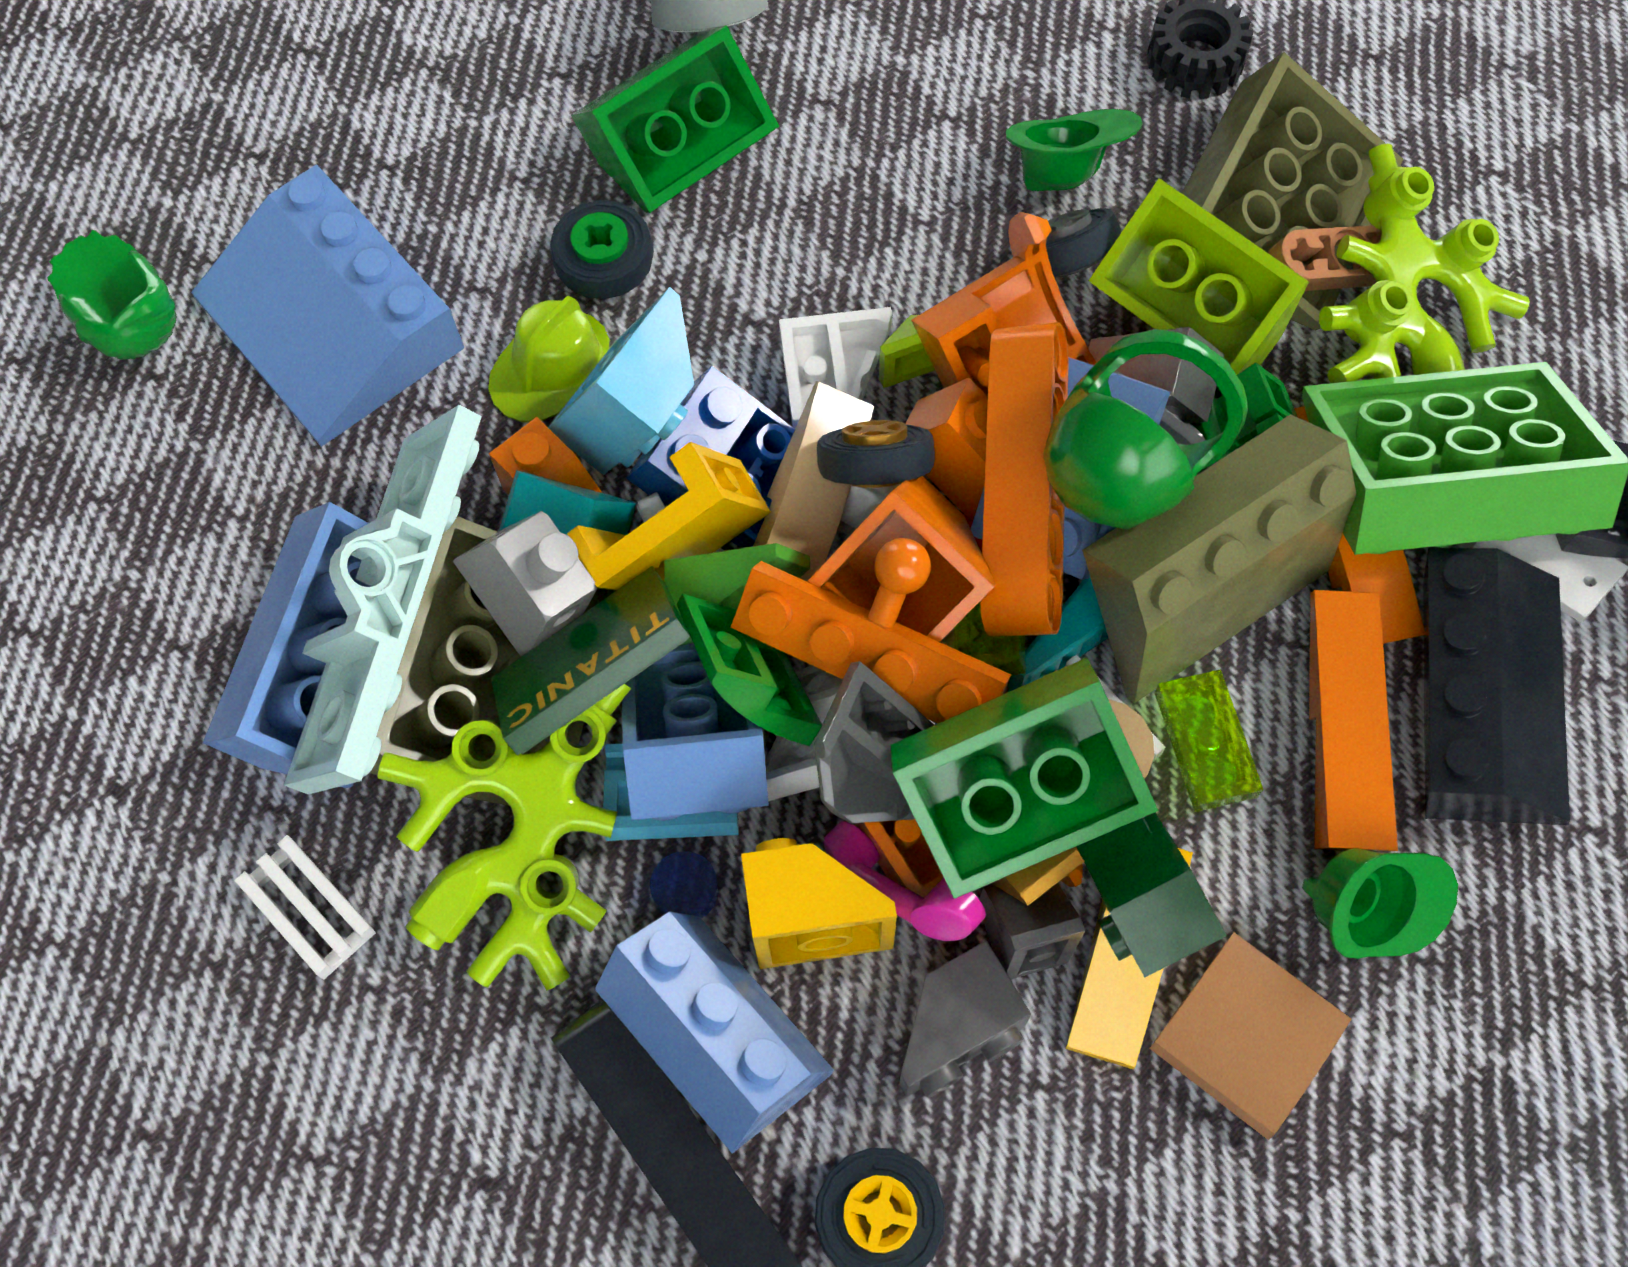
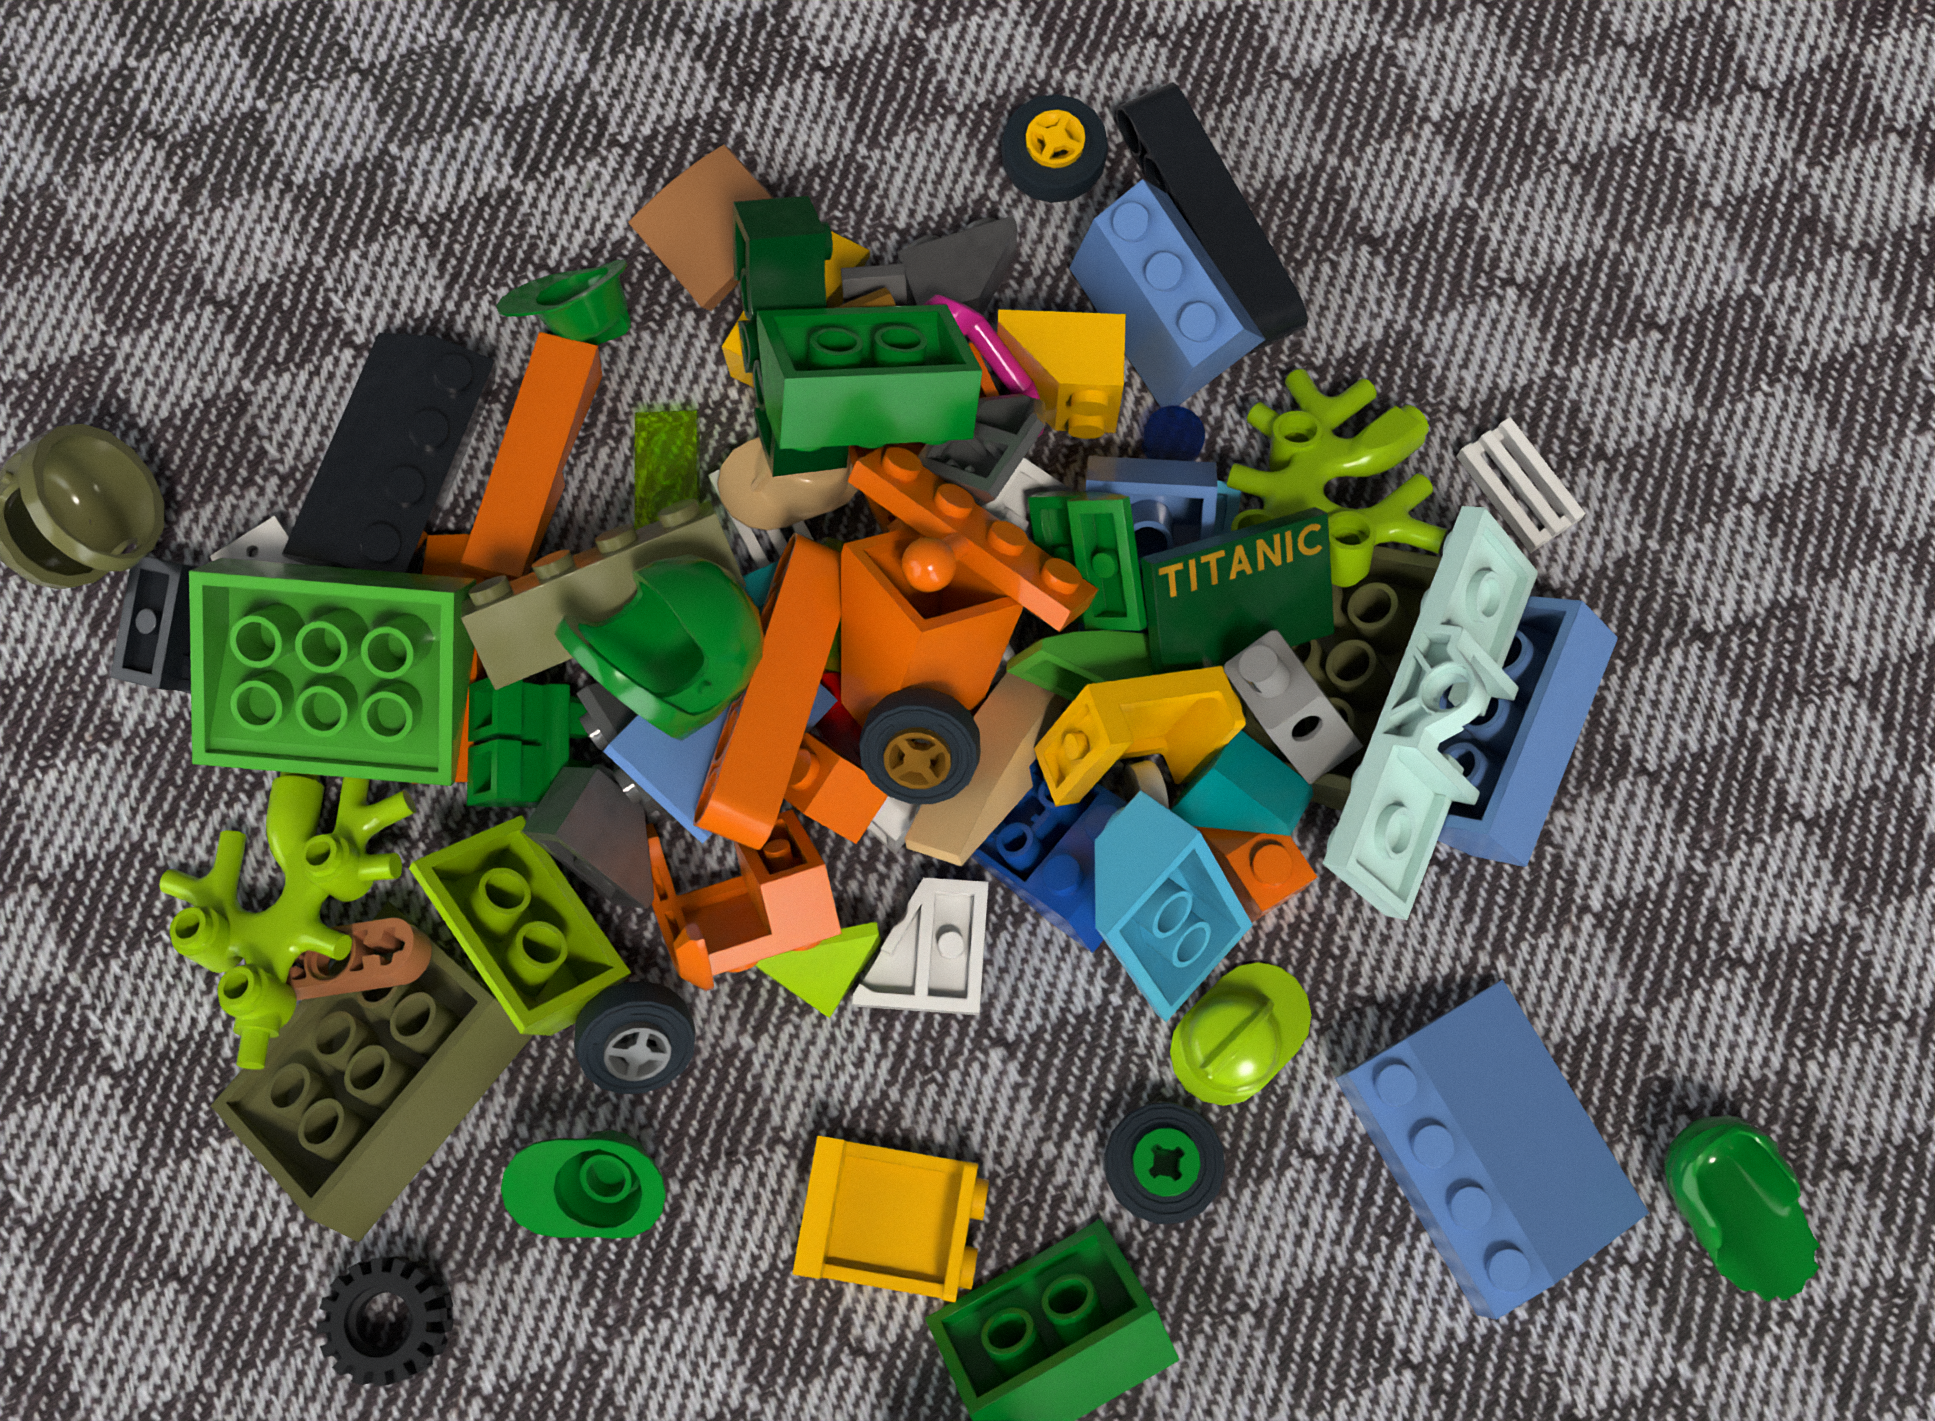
camera: 170 degrees left, 10 degrees up
(821, 178) = (890, 1219): none -> yellow panel

